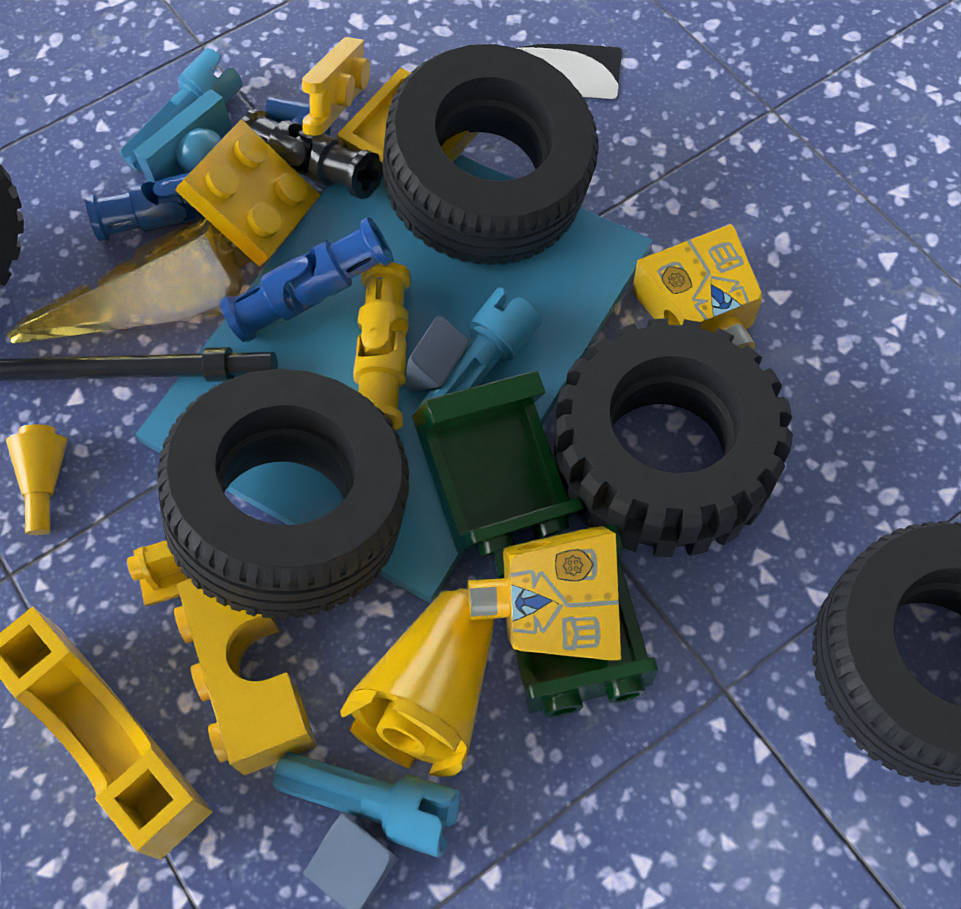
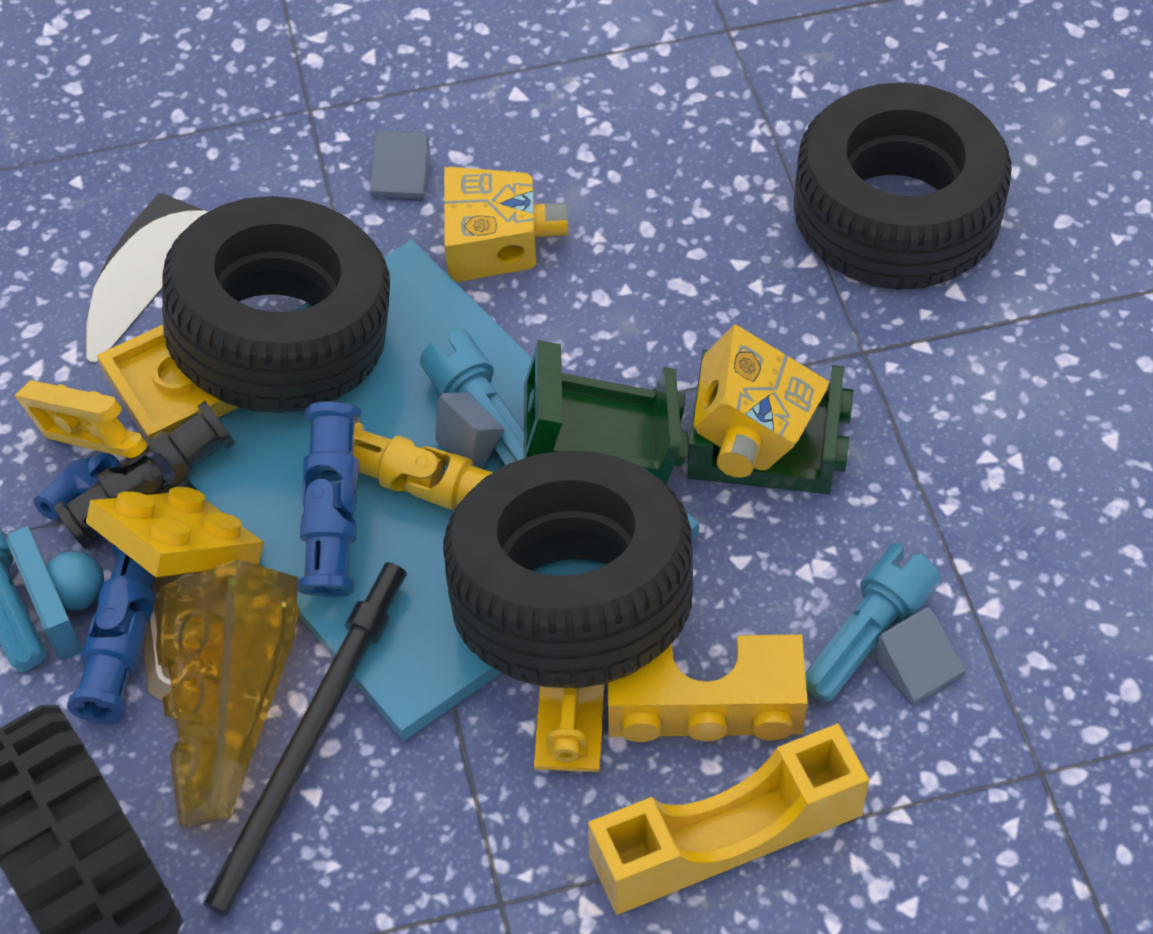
camera: 70 degrees left, 10 degrees down
(37, 463) = (391, 834): yellow cone -> none
(426, 689) = (792, 538): yellow cone -> none
(683, 370) = (632, 234): black tyre -> none
(737, 197) = (400, 165): none -> sand blue slope

